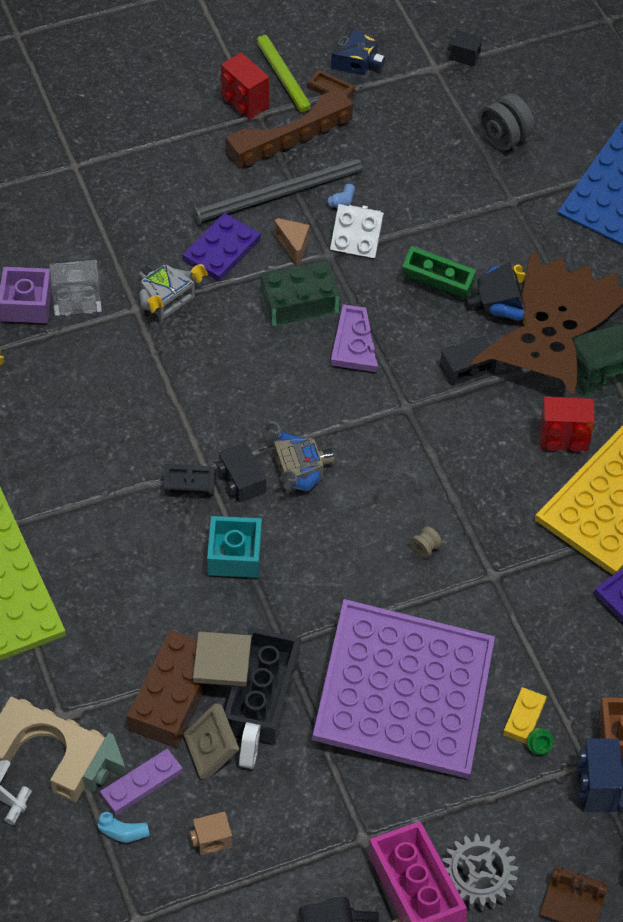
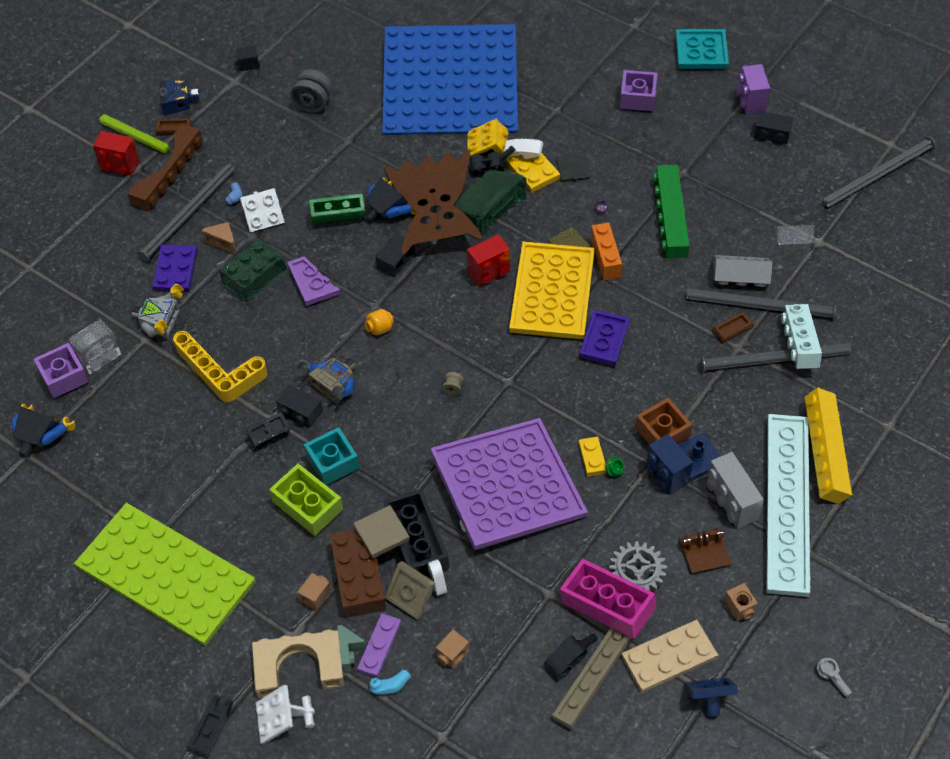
camera: 30 degrees left, 0 degrees up
(114, 682) = (314, 591): none -> medium nougat brick
(175, 578) = (306, 499): none -> lime brick
(187, 408) = (213, 375): none -> yellow beam
(394, 427) = (379, 322): none -> light orange head

